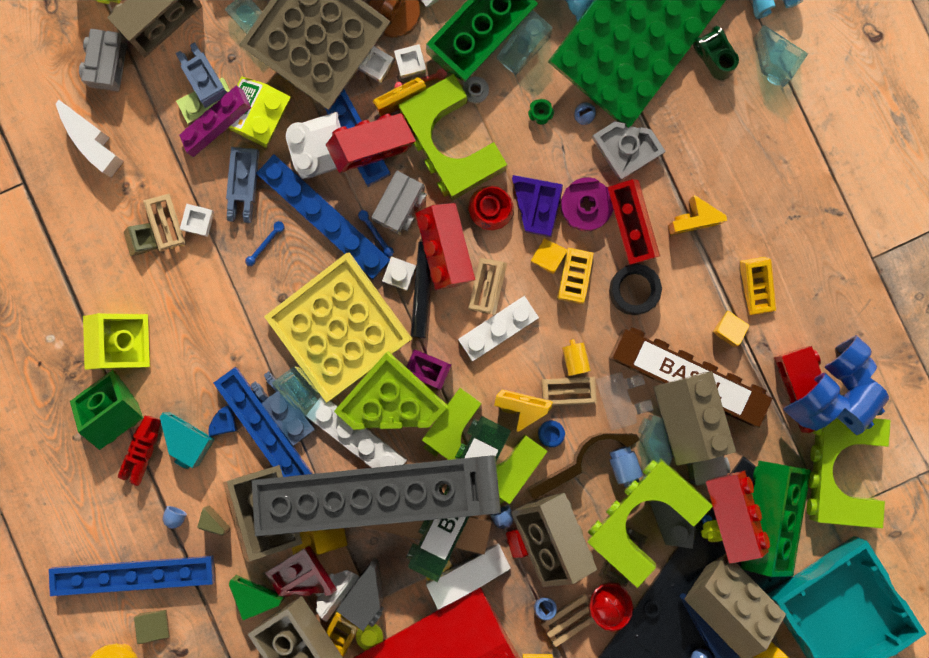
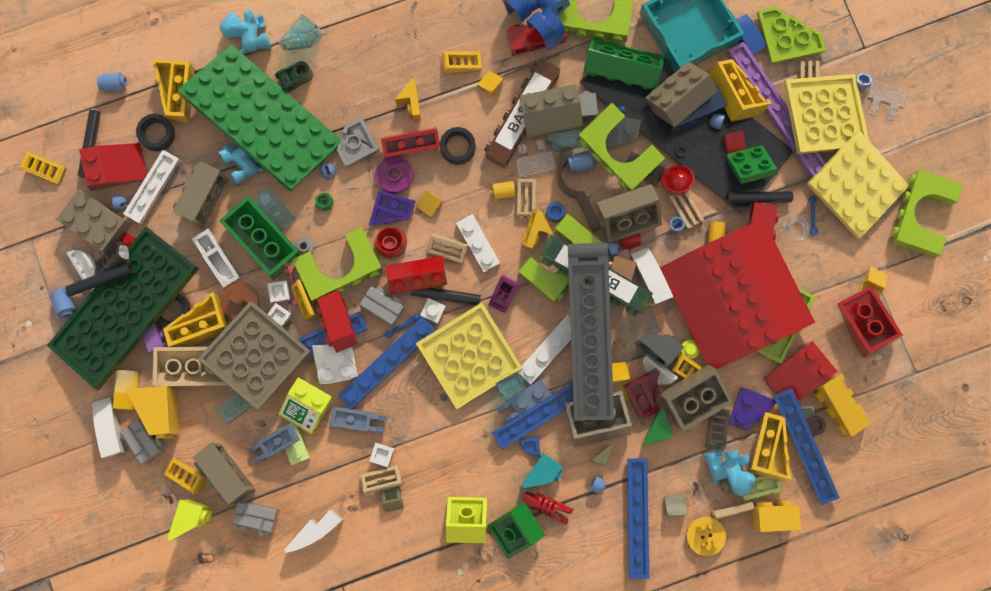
camera: 80 degrees left, 5 degrees down
(215, 121) = (310, 435): magenta plate -> none
(278, 227) = (391, 396): blue hinge -> none
(390, 399) = (523, 320): lime plate -> none
(569, 296) = (452, 181): yellow slope -> none
(711, 531) = (629, 104): neon yellow plate -> none
(738, 517) = (620, 86): red brick -> none

